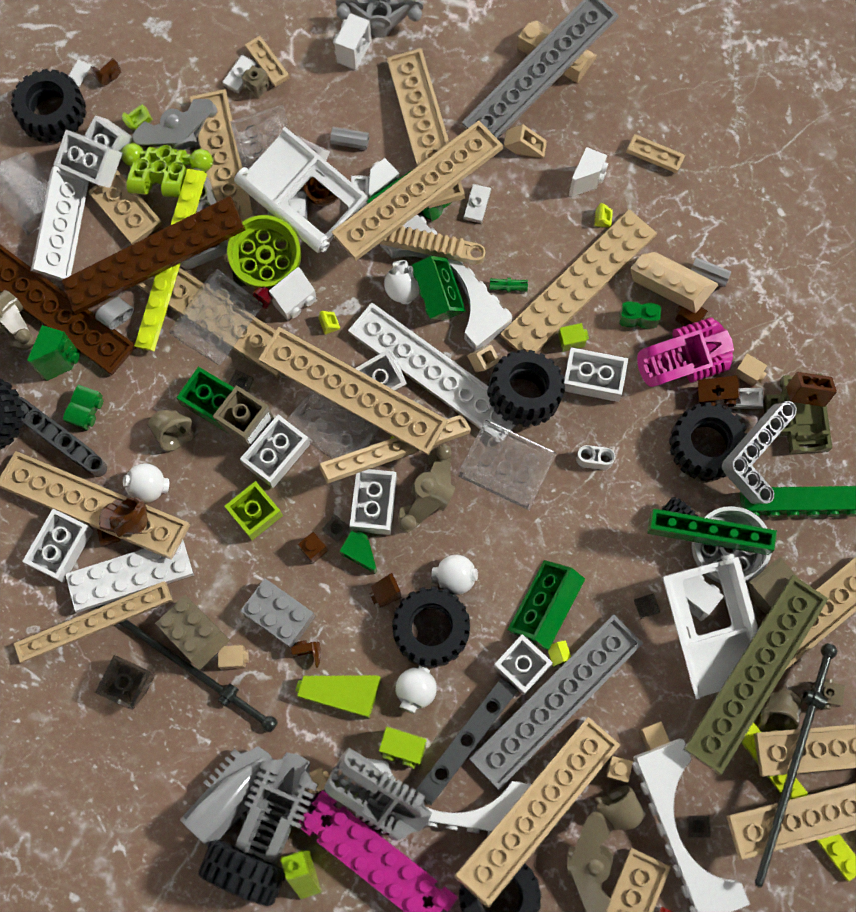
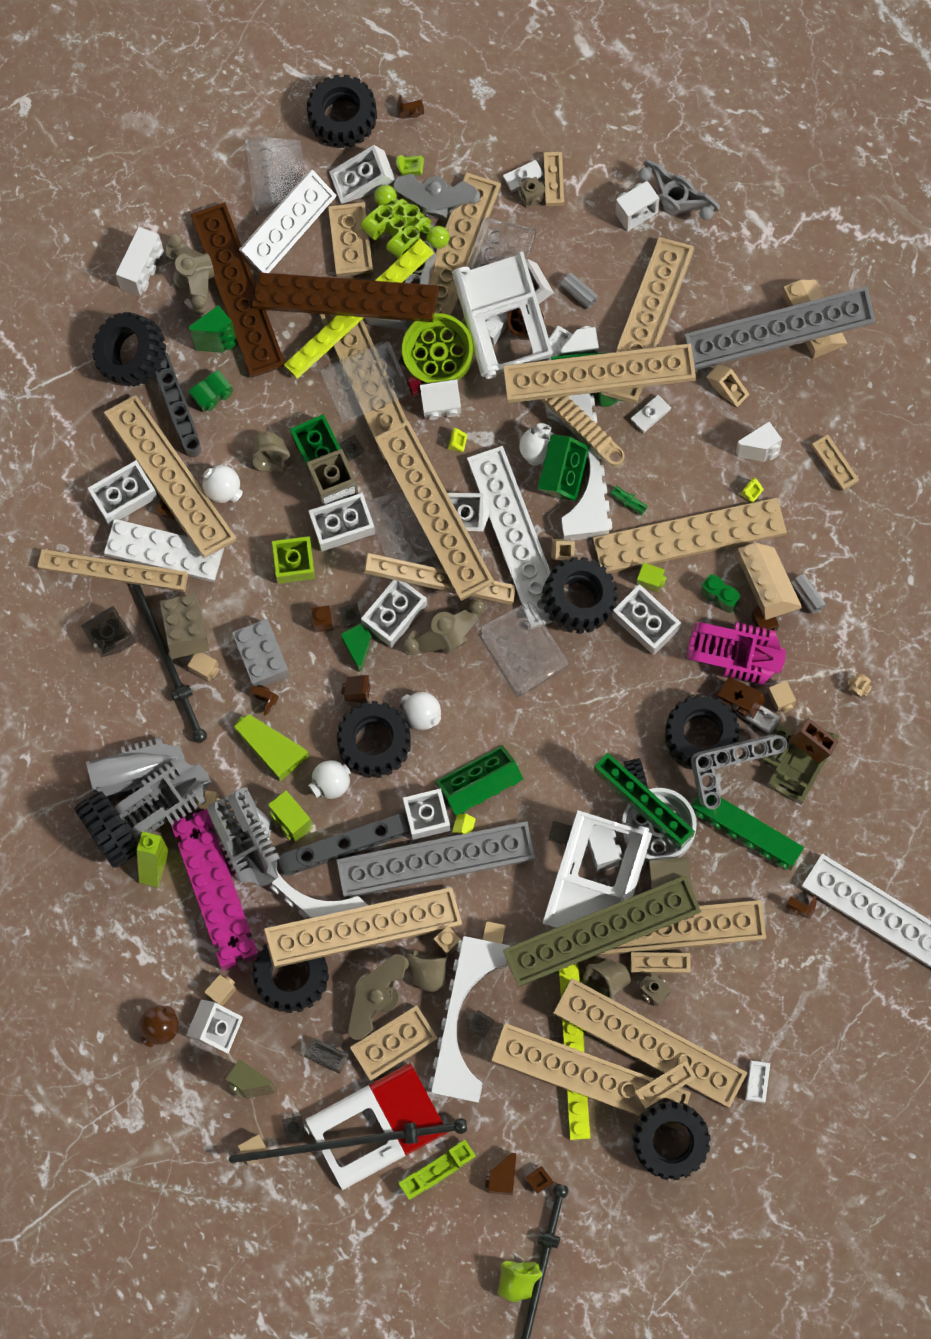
camera: 35 degrees right, 0 degrees up
(79, 71) = (386, 93): white sticker -> none
(87, 159) = (344, 180): white brick -> none
(114, 313) = (285, 326): light grey beam -> none
(124, 517) = (187, 501): reddish brown hair -> none
(595, 454) = (602, 686): white beam -> none
(806, 321) = (859, 685): none -> tan gear
(808, 669) = (660, 963): none -> tan plate
(814, 700) = (636, 983): pearl dark grey bar -> none

